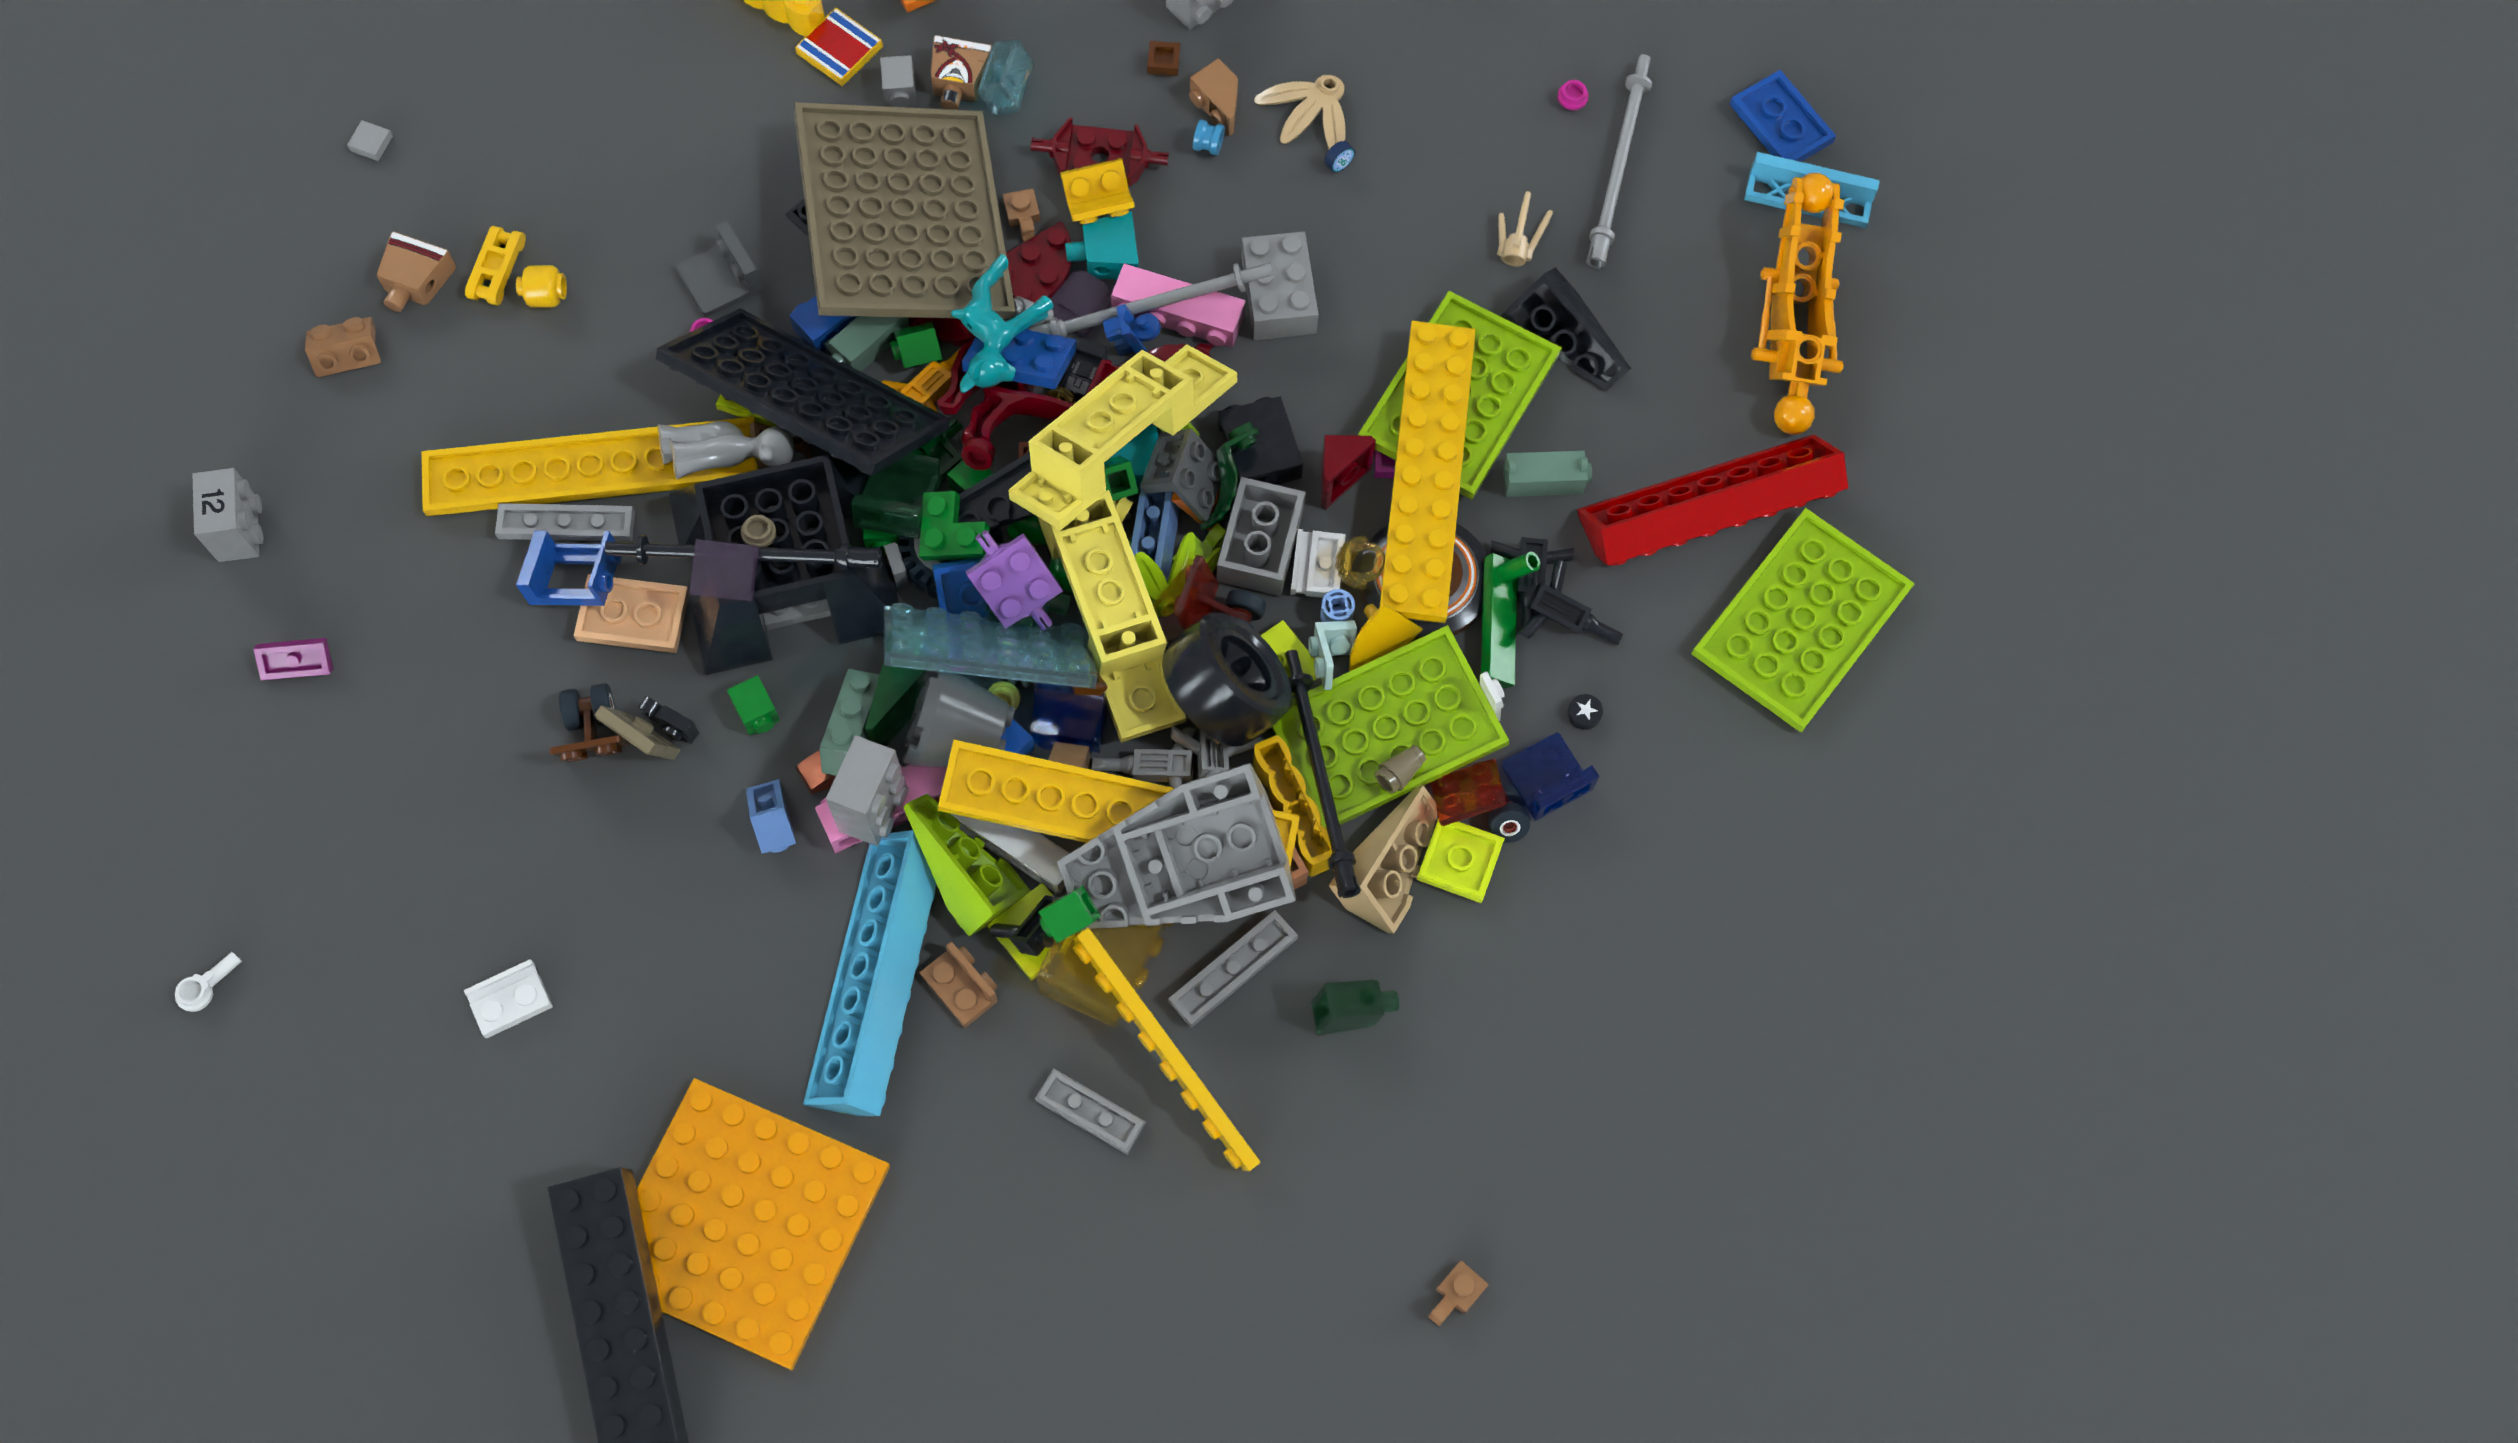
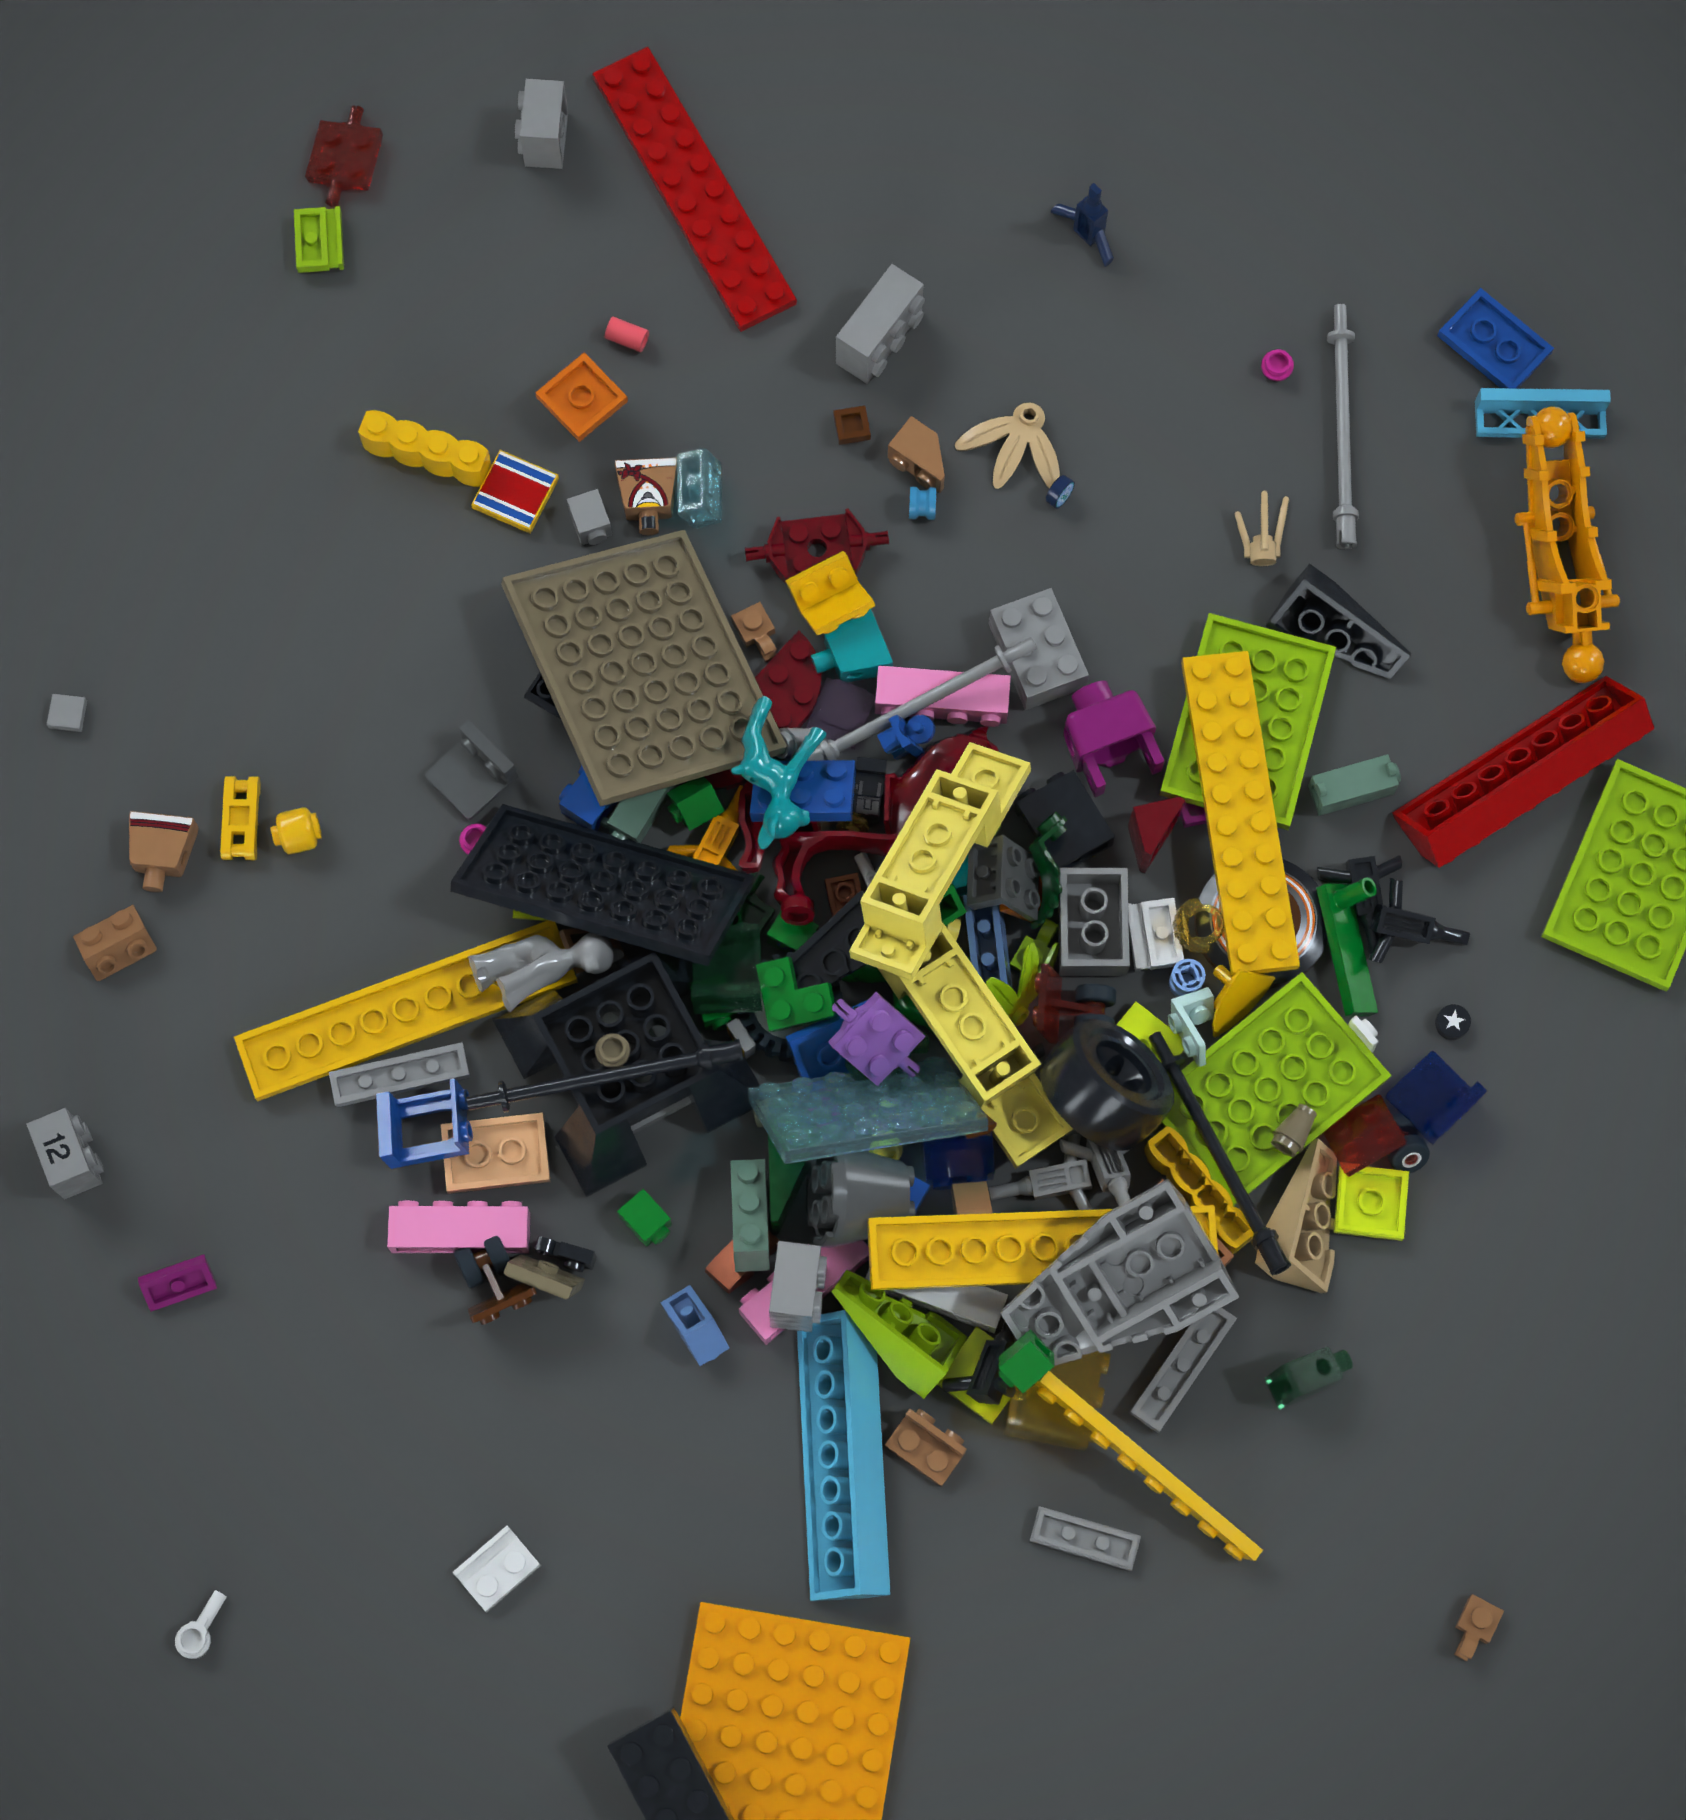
camera: 10 degrees left, 5 degrees up
(561, 667) = (450, 1227): none -> bright pink brick
(724, 570) = (592, 1099): clear purple piece -> none
(1324, 371) = (1108, 731): none -> magenta piece

